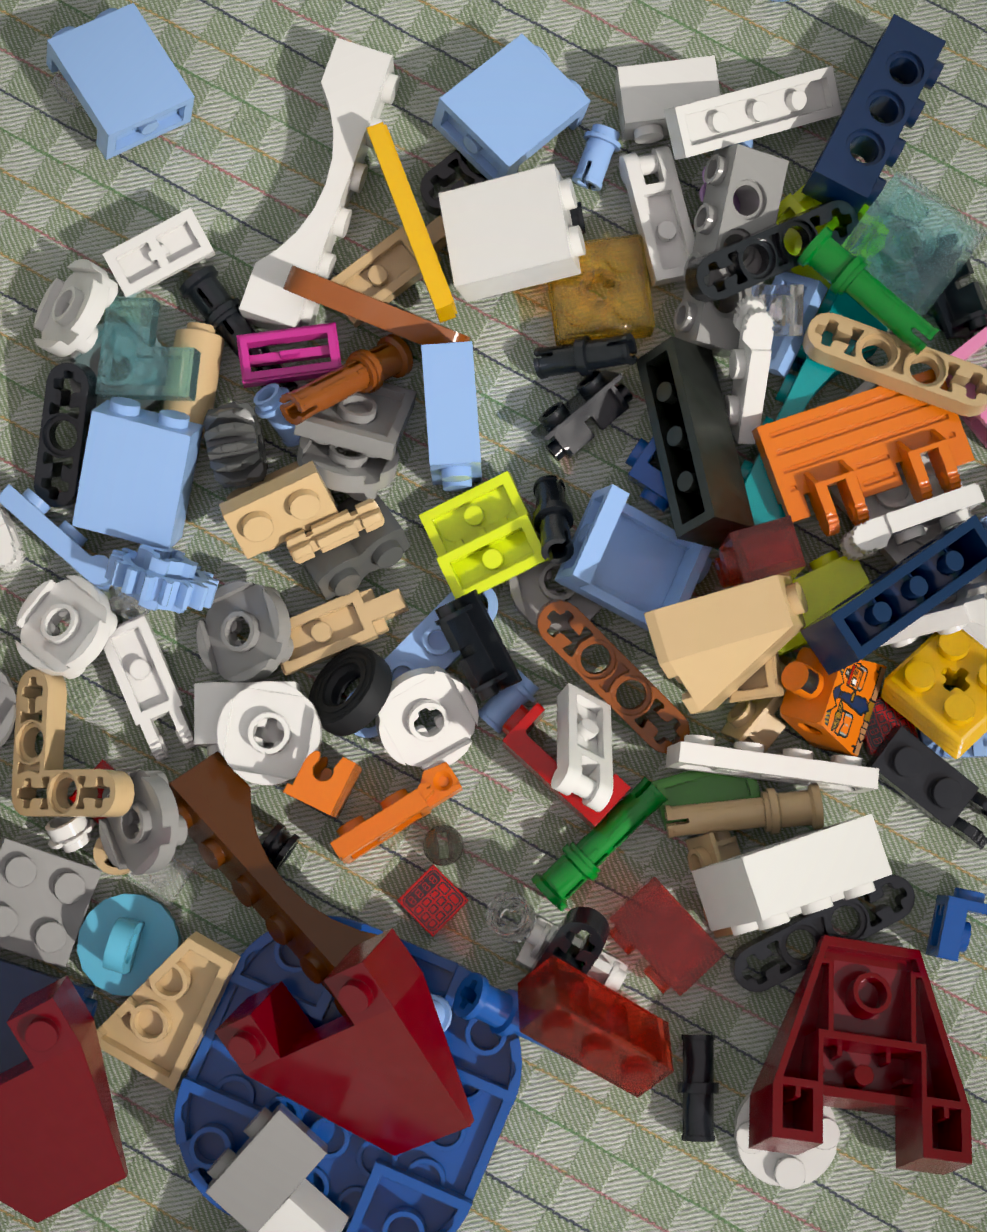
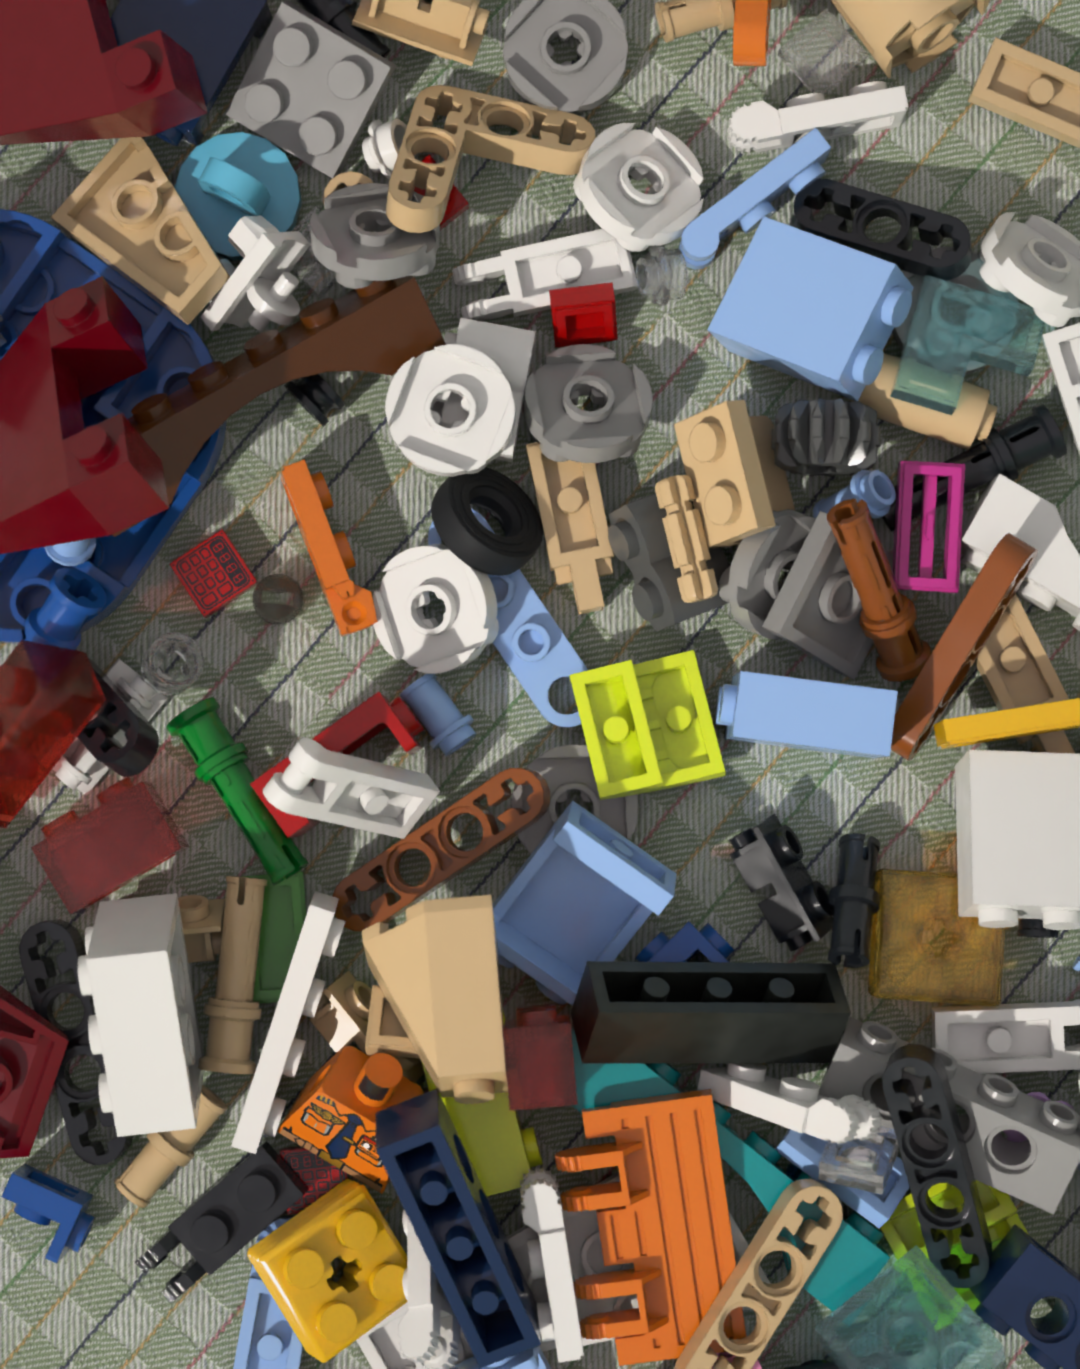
camera: 100 degrees right, 5 degrees up
(161, 579) = (670, 313): light blue gear -> none
(174, 650) = (583, 314): none -> red tile
(196, 905) = (262, 282): none -> white hips
(322, 787) = (369, 456): orange hinge -> none
(484, 653) = (531, 683): black hinge -> none
(553, 519) = (650, 815): black pin -> none
(848, 275) = (882, 1255): green pin -> none
(897, 845) = (167, 1152): none -> tan pin

